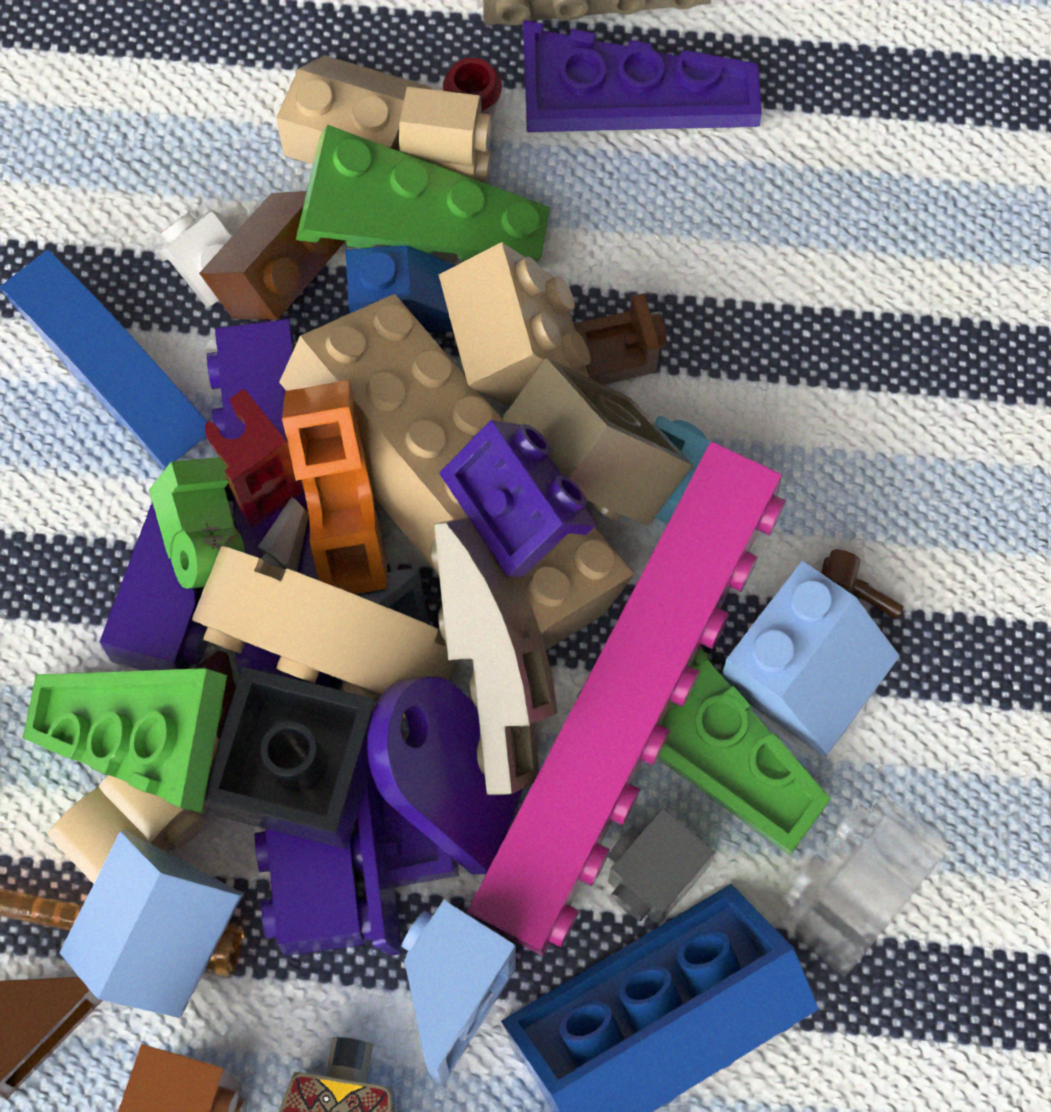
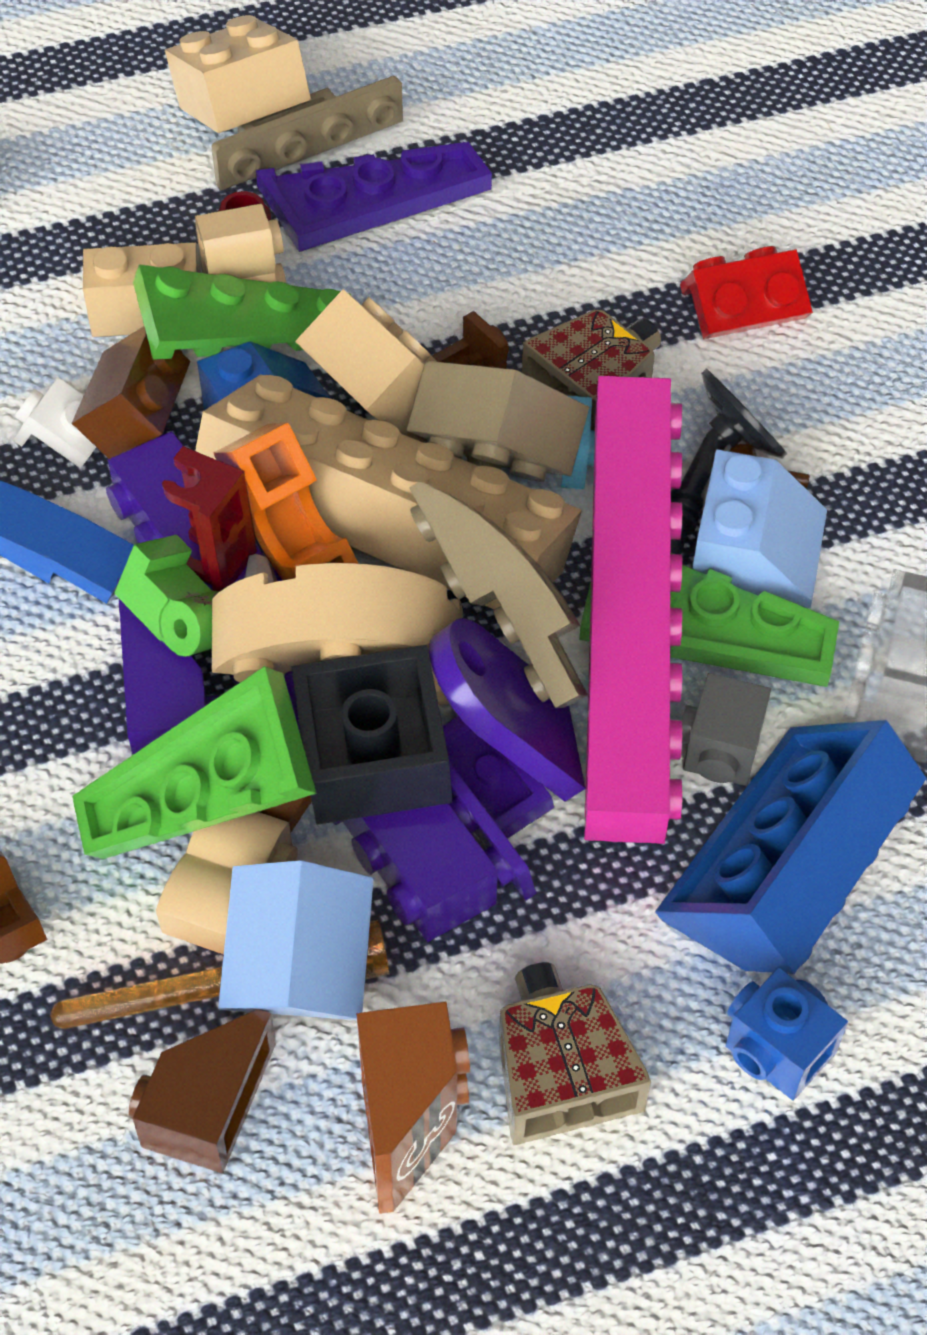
camera: 25 degrees left, 15 degrees down
(454, 981) = (601, 875): light blue slope -> none
(516, 495) = (462, 455): dark purple bracket -> none
(748, 393) = (590, 347): none -> torso
(851, 530) = (730, 427): none -> black dish
(955, 365) = (748, 292): none -> red bracket

